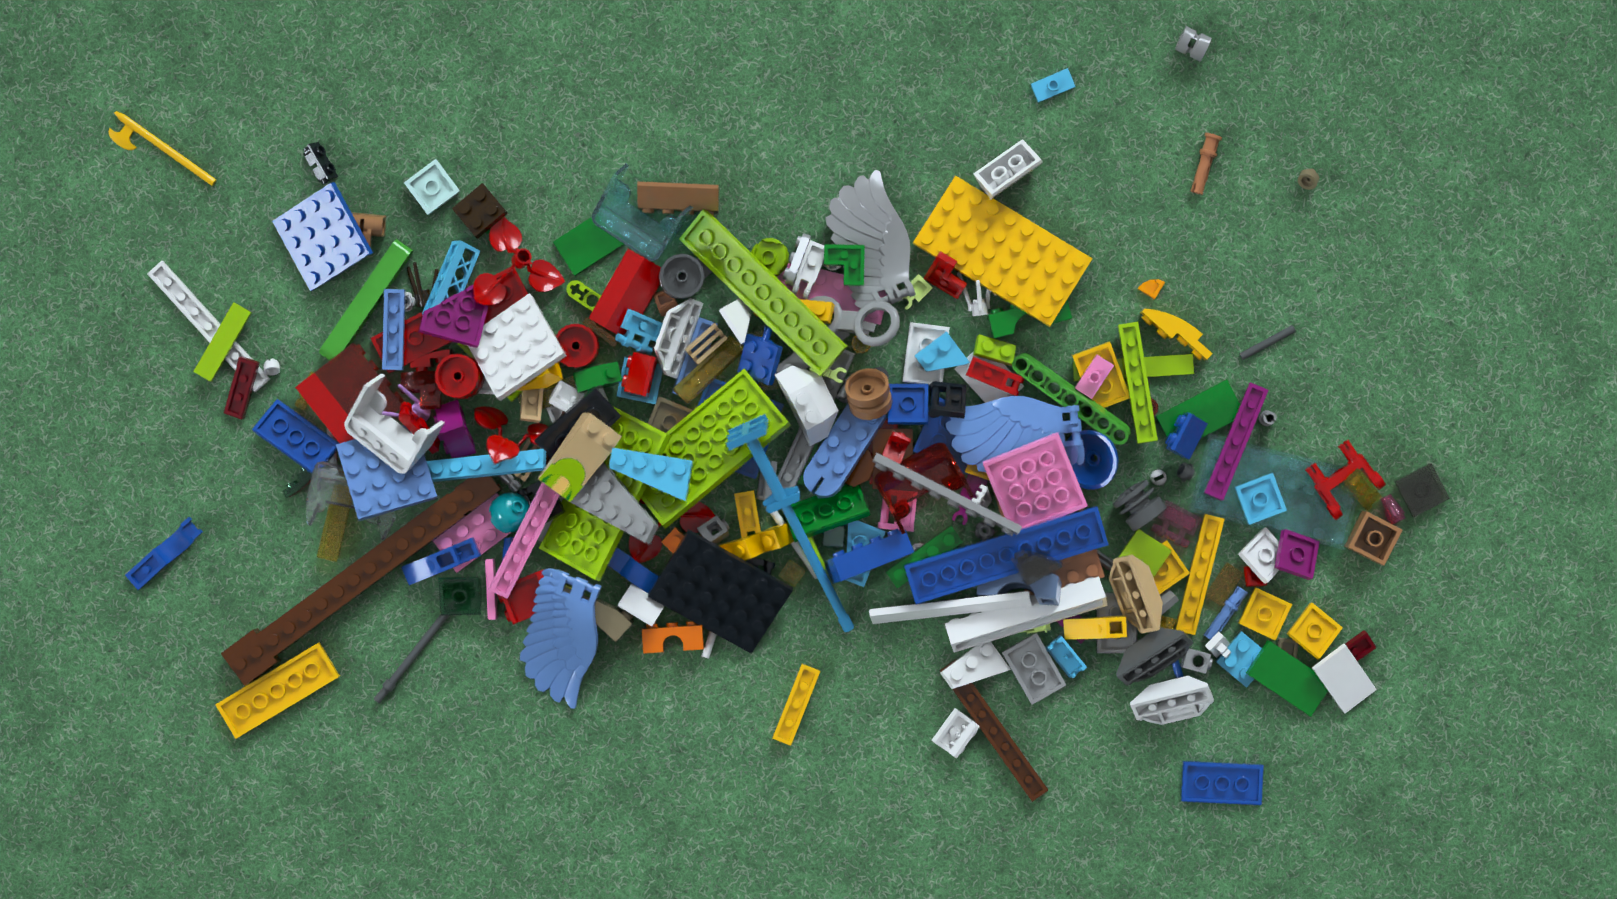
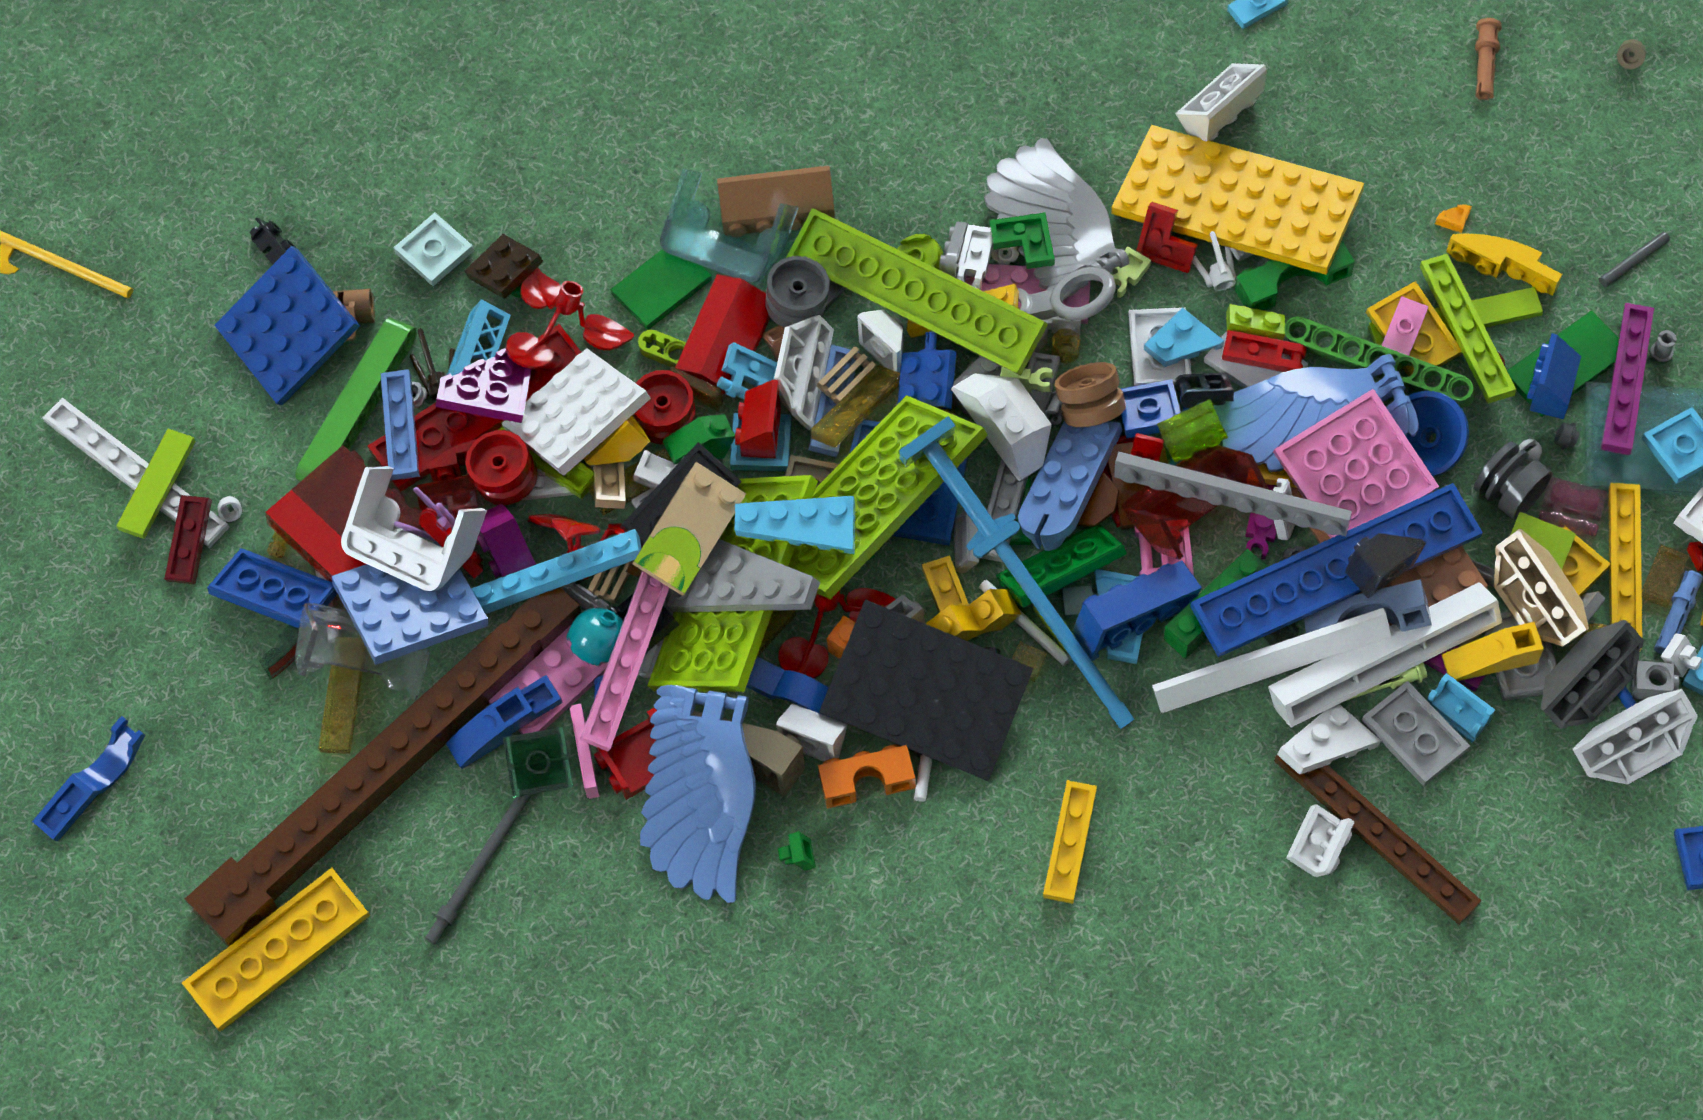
camera: 10 degrees left, 25 degrees down
(621, 682) = (798, 852): none -> green tile
(932, 434) = (1192, 431): none -> clear neon green brick

